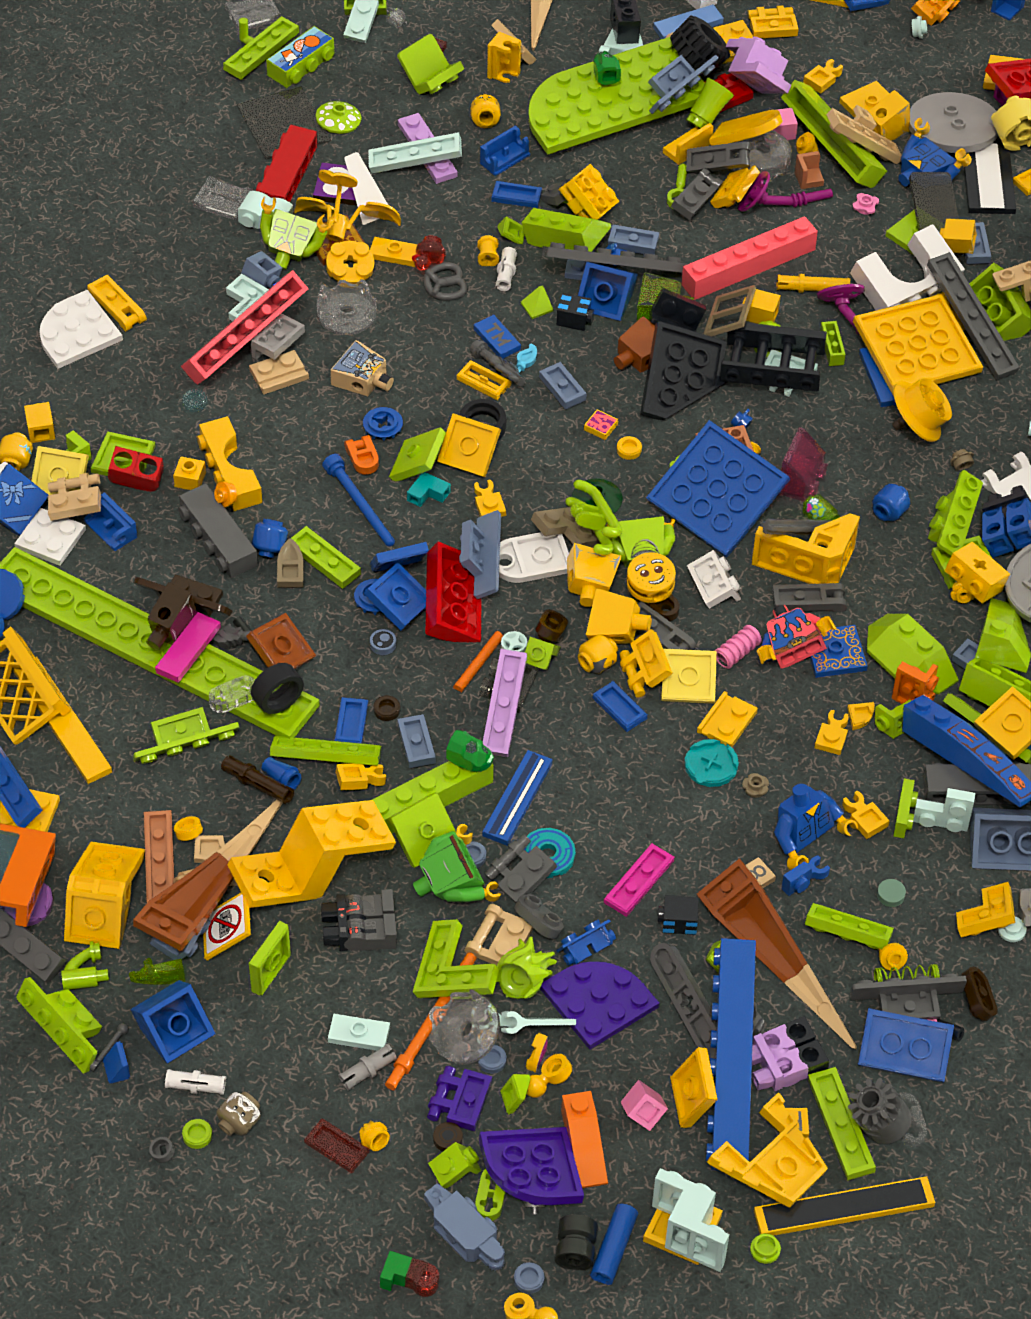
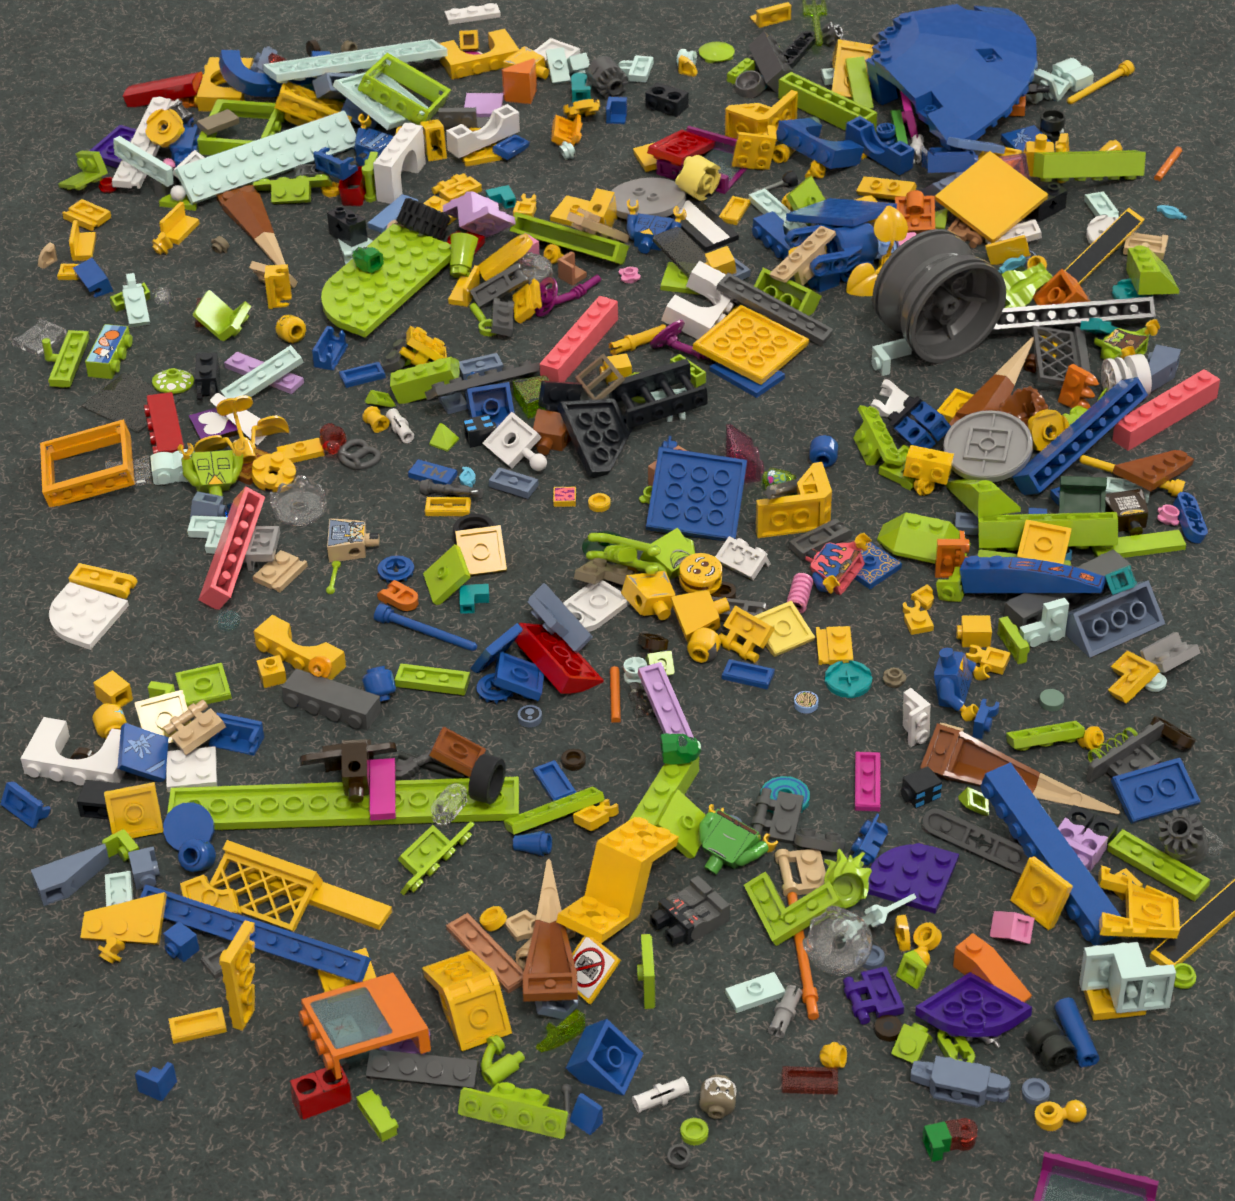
camera: 30 degrees left, 10 degrees down
(138, 481) = (225, 695): red piece -> none
(146, 192) = (93, 483): none -> light orange window
(250, 775) = (519, 855): dark brown pin -> none
(290, 565) = (412, 697): dark tan plate -> none
(335, 390) = (330, 589): none -> lime hinge
(367, 127) = (207, 374): none -> black hinge
(416, 741) = (618, 769): sand blue plate -> none
(487, 500) = (523, 585): yellow plate -> none
(517, 797) = (728, 771): blue tile -> none
(588, 351) = (525, 439): none -> white plate
(649, 765) = (806, 702): none -> tile
(674, 78) = (429, 245): sand blue bracket -> none
(727, 845) = (916, 717): none -> white bracket
(811, 50) = (502, 195): none -> teal piece
(874, 778) = (974, 631): none -> yellow brick
(922, 408) = (795, 377): yellow piece -> none
(962, 460) = (846, 404): dark tan plate -> none

